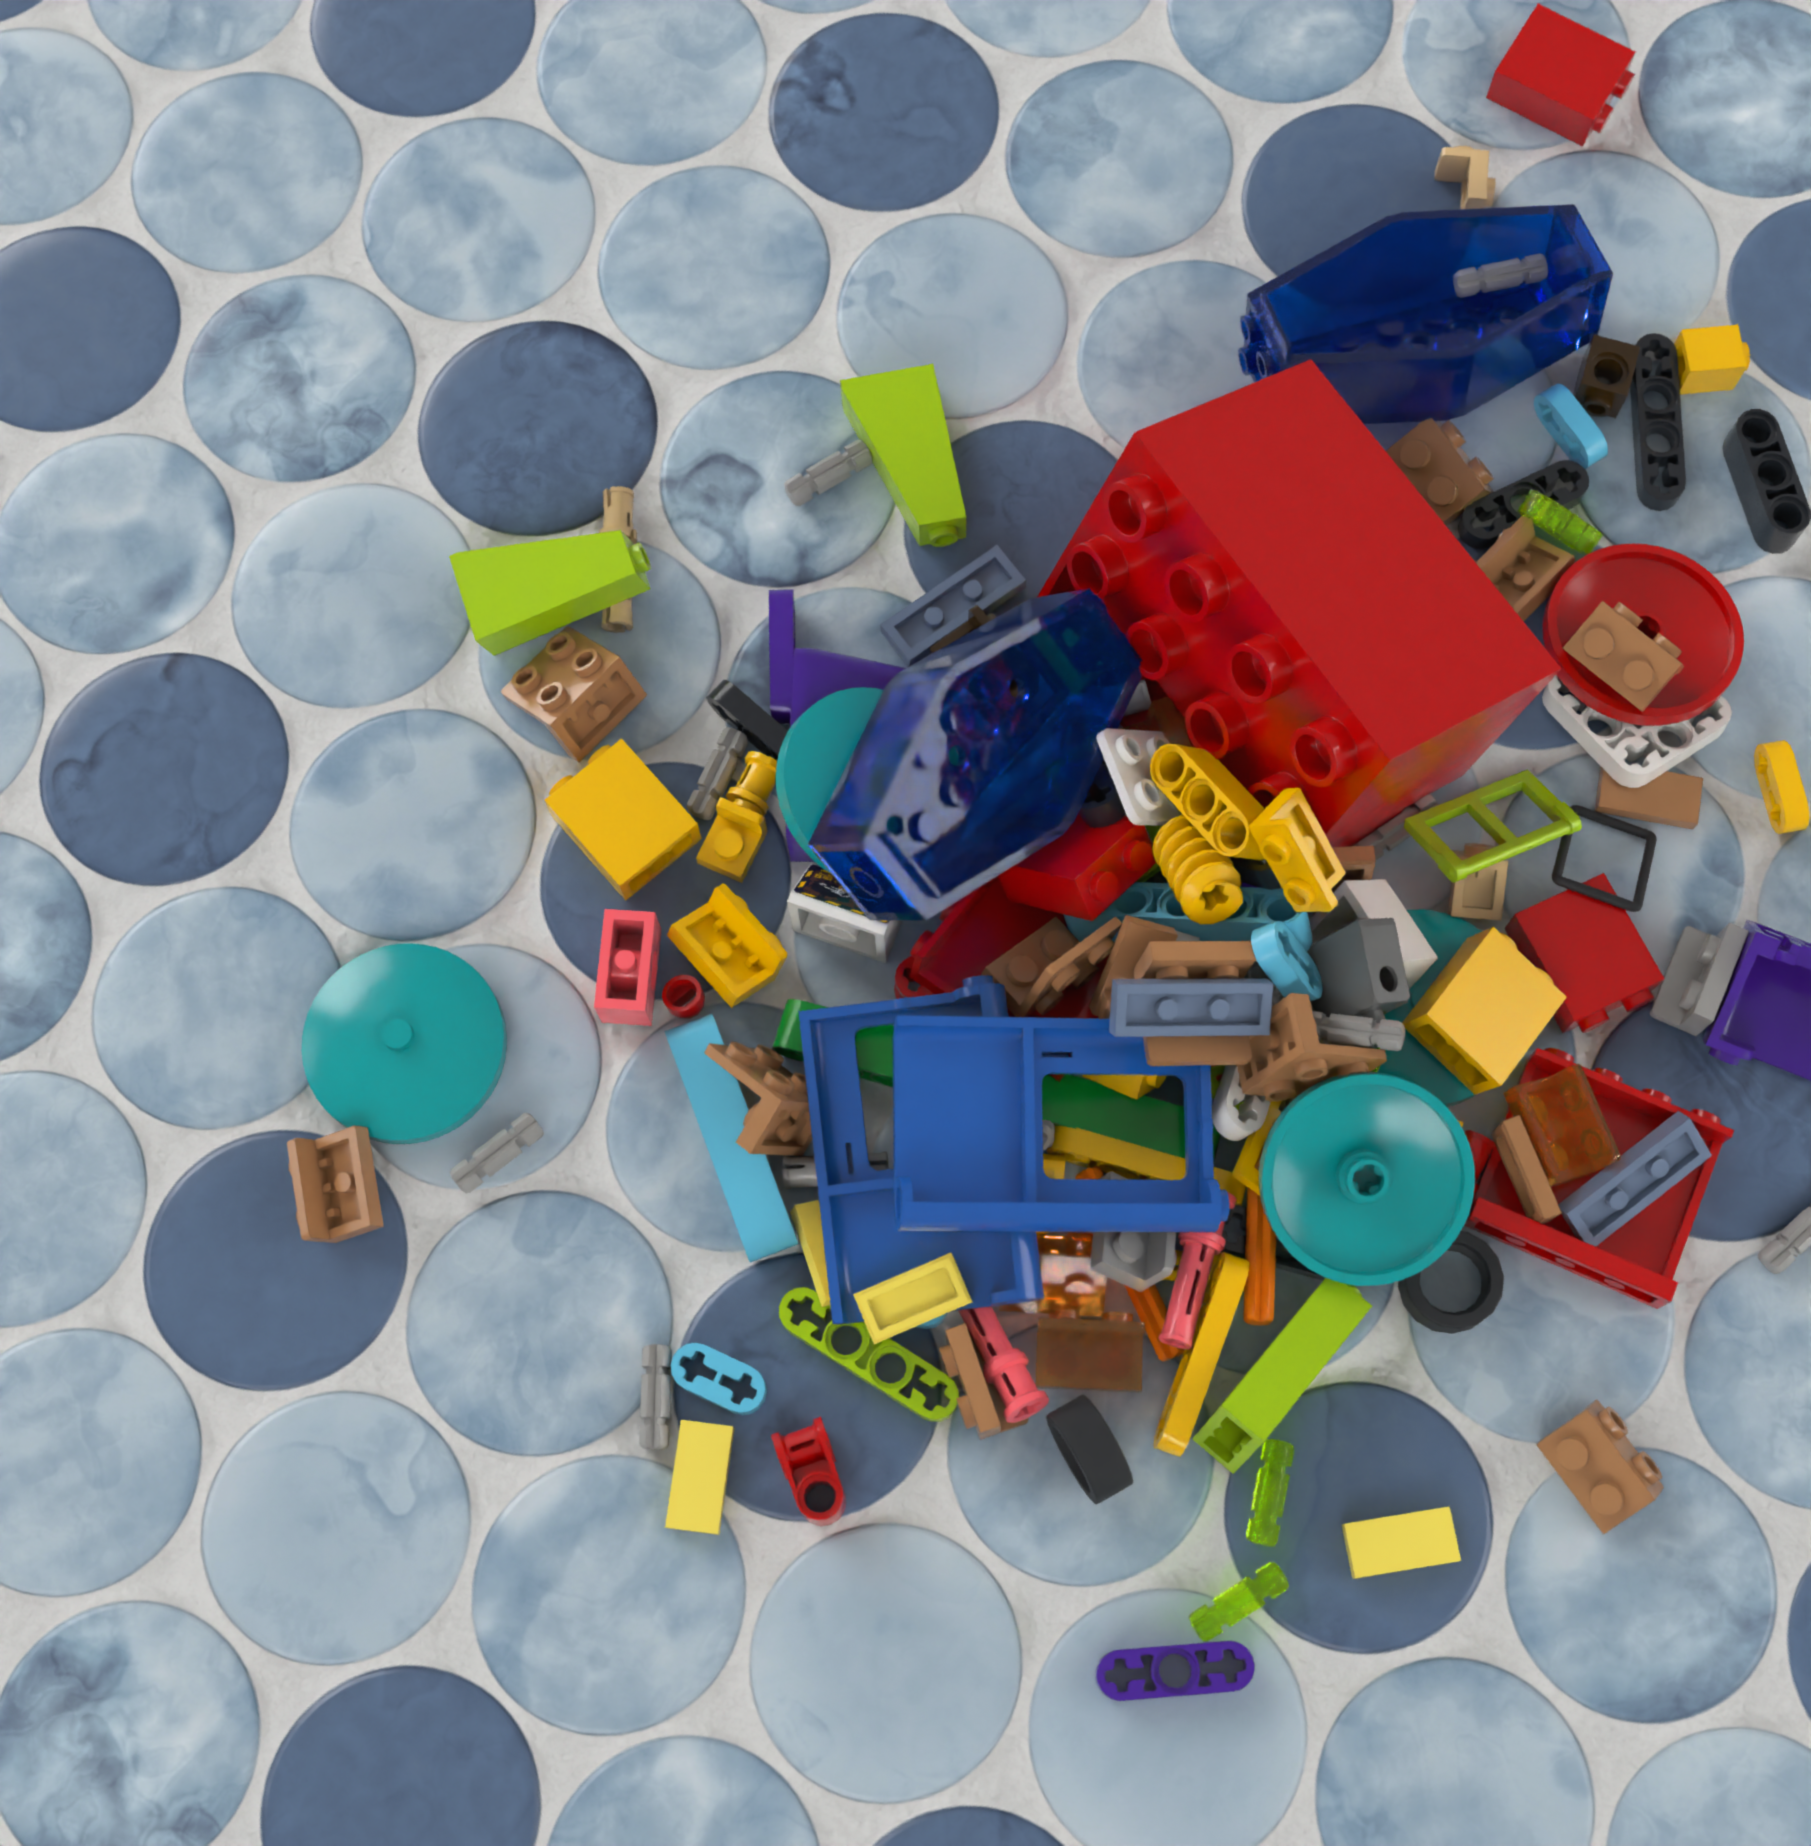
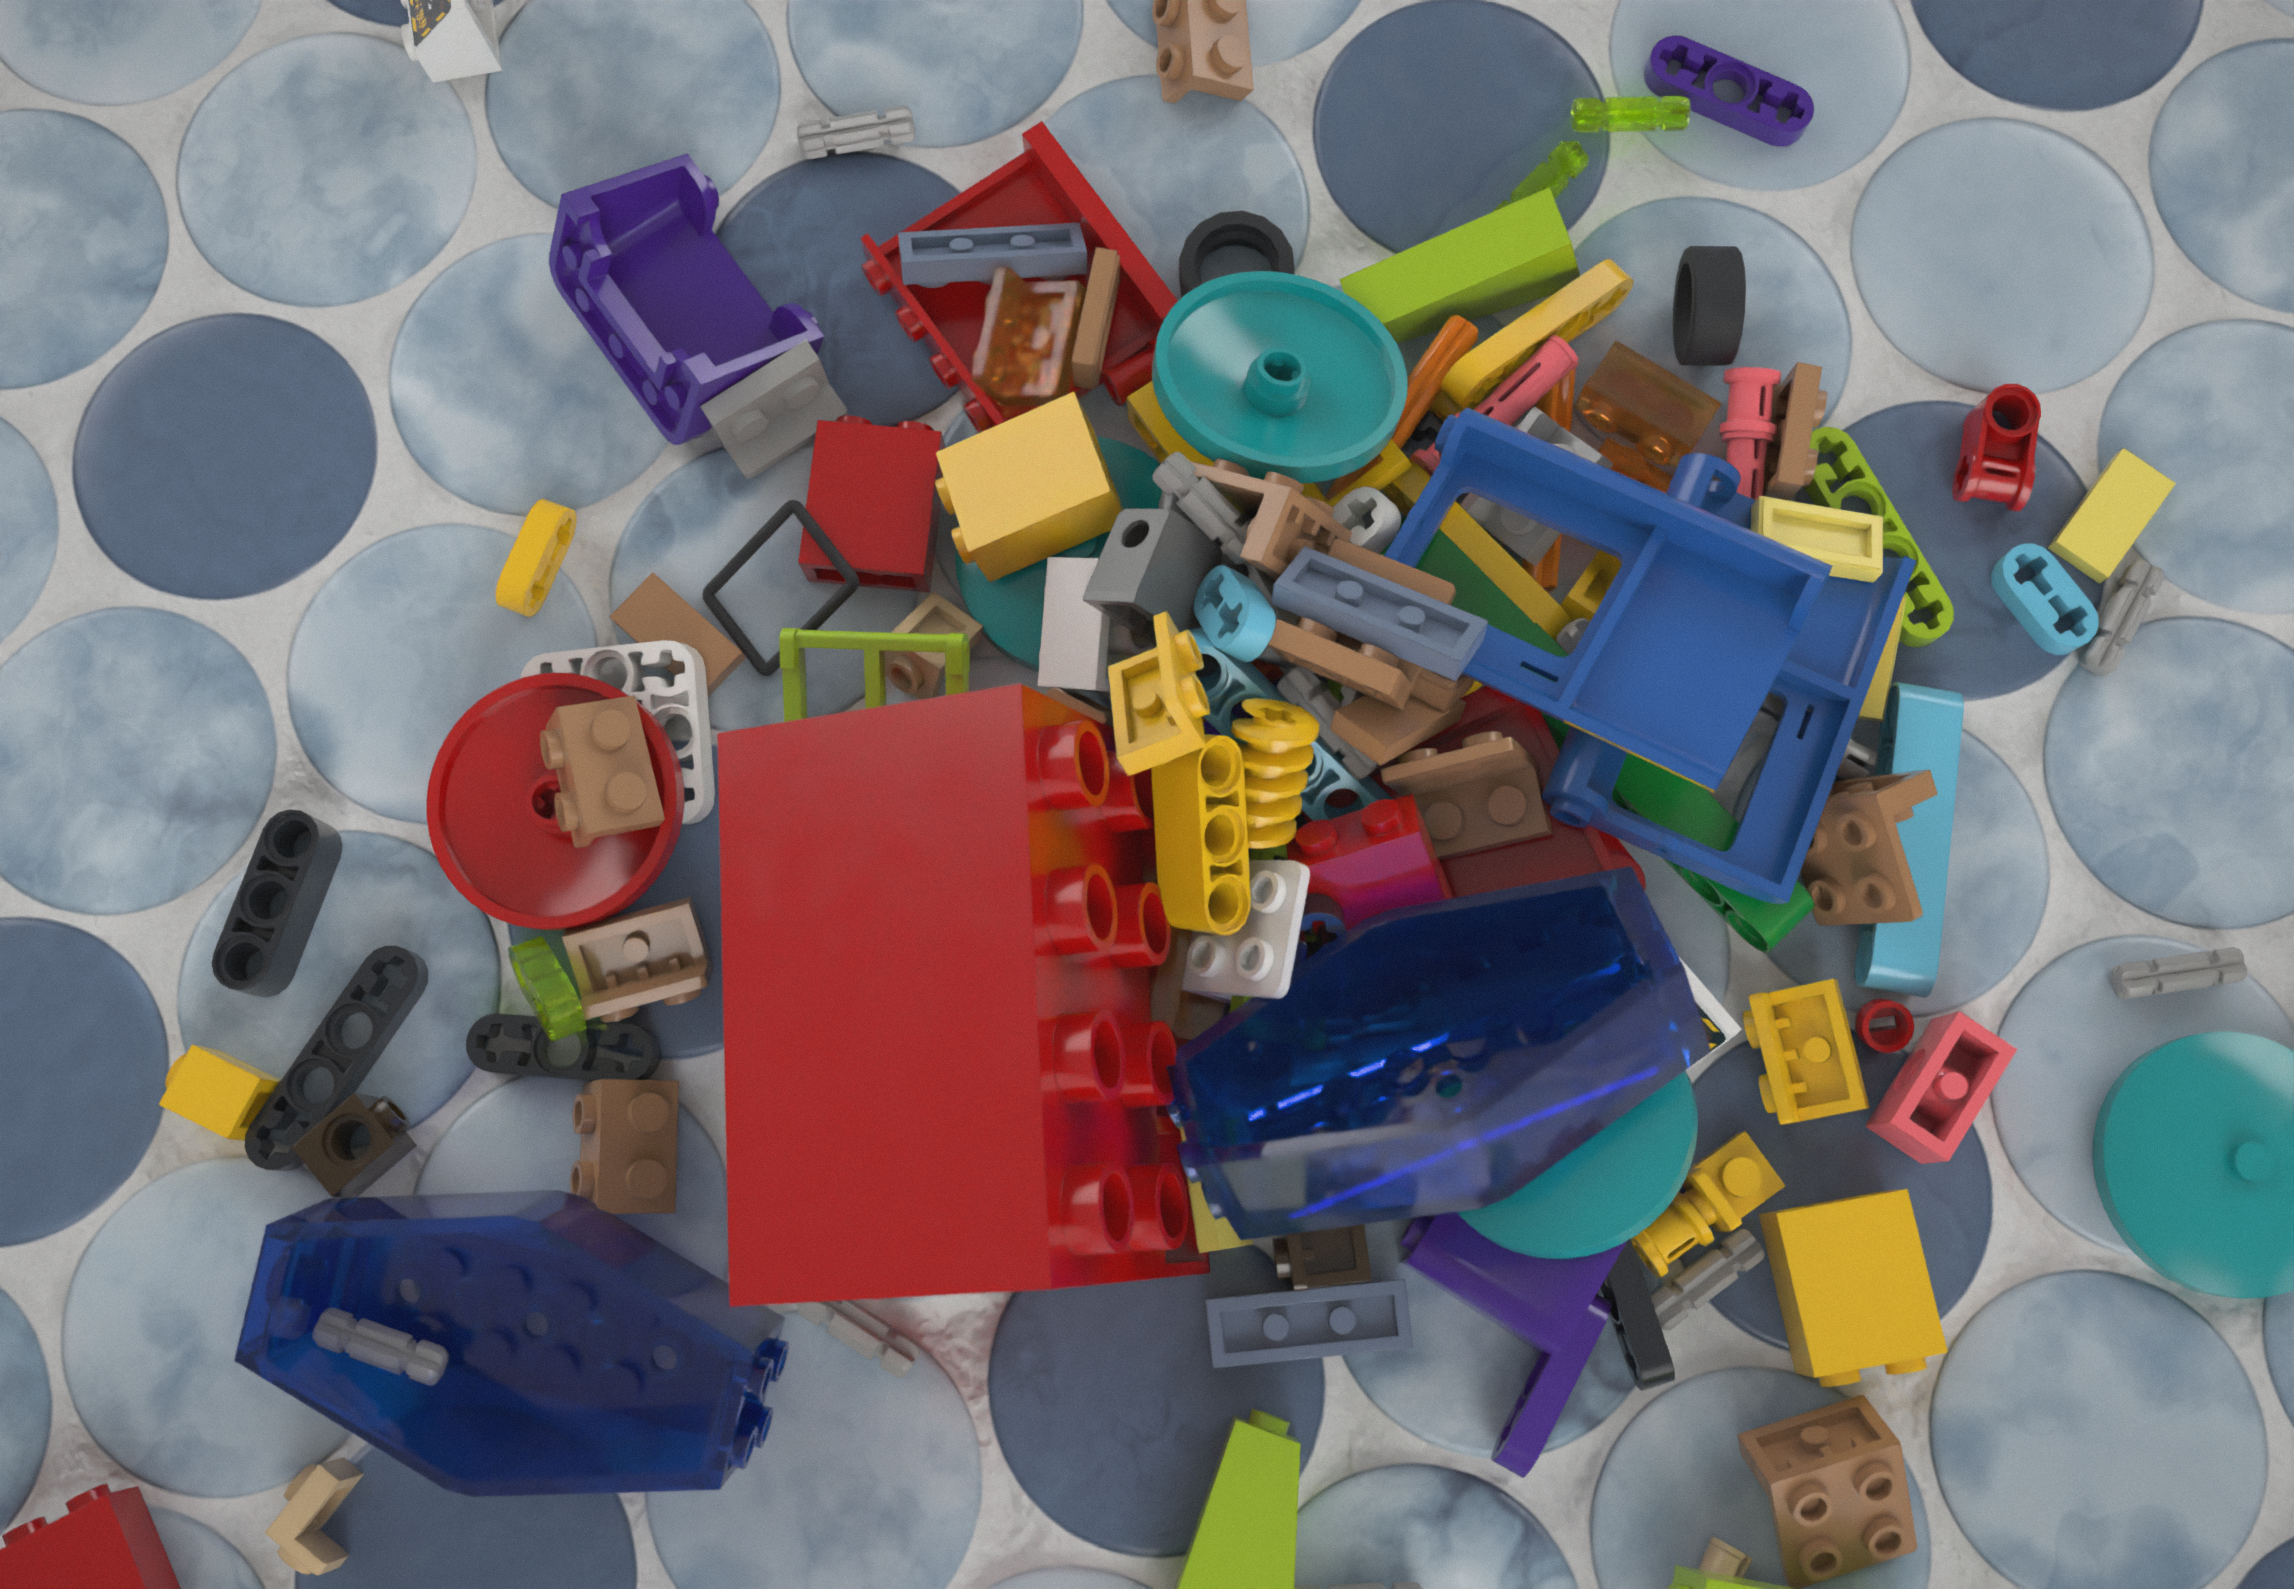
camera: 150 degrees left, 5 degrees up
(1401, 1542) = (1439, 81): light yellow tile -> none
(1570, 425) = (440, 1108): medium azure beam -> none

